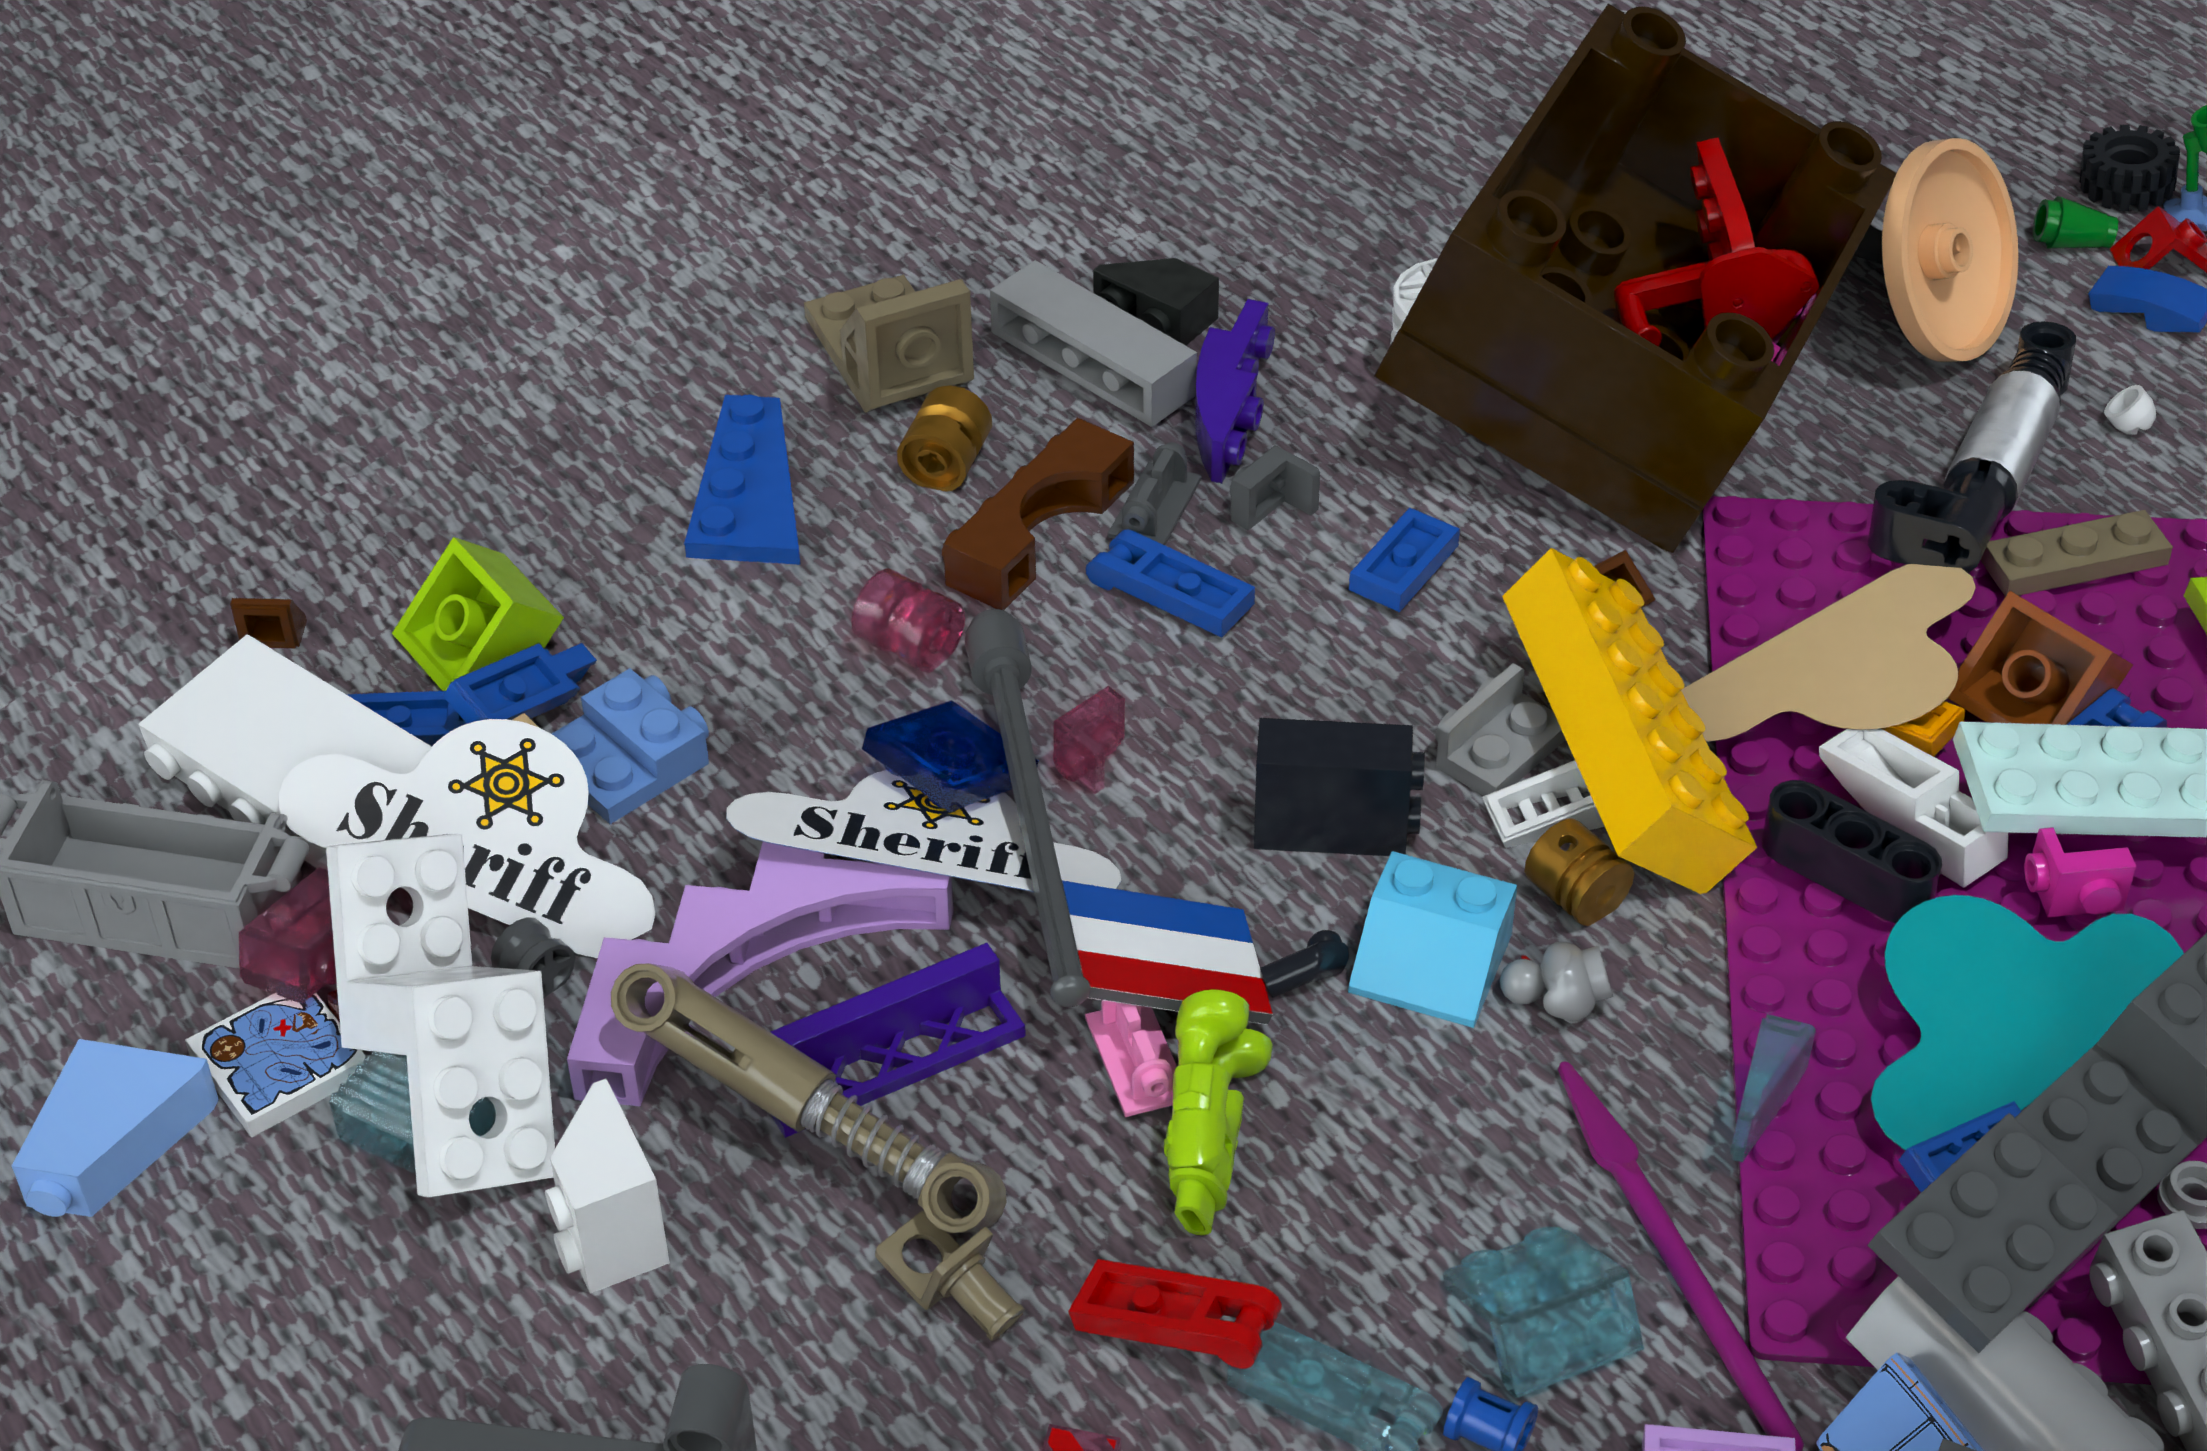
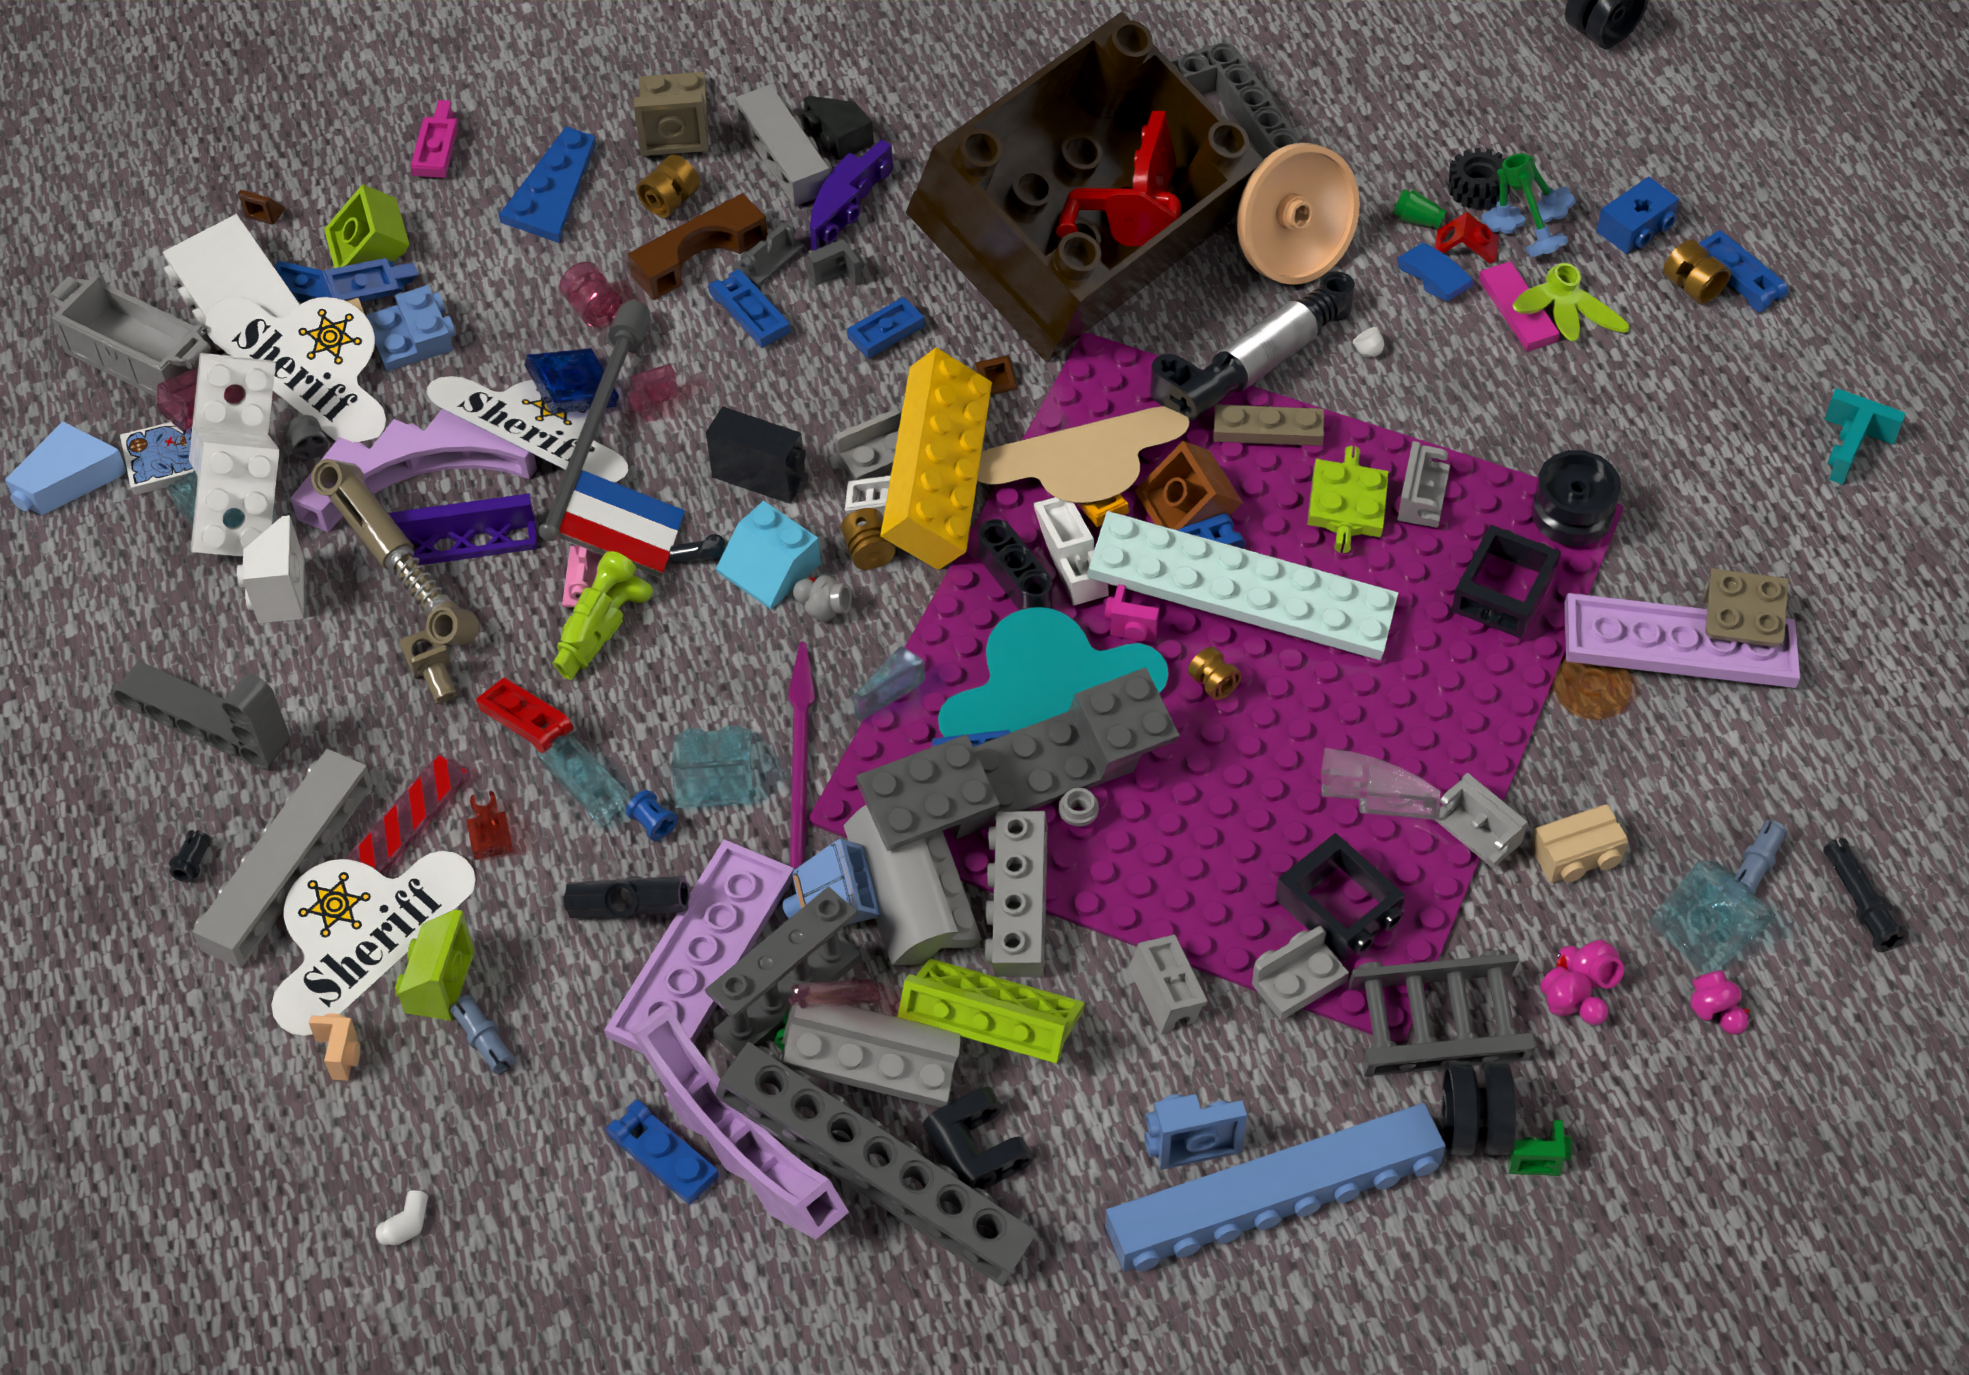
camera: 20 degrees right, 10 degrees up
(523, 465) = (435, 142): none -> dark pink hinge

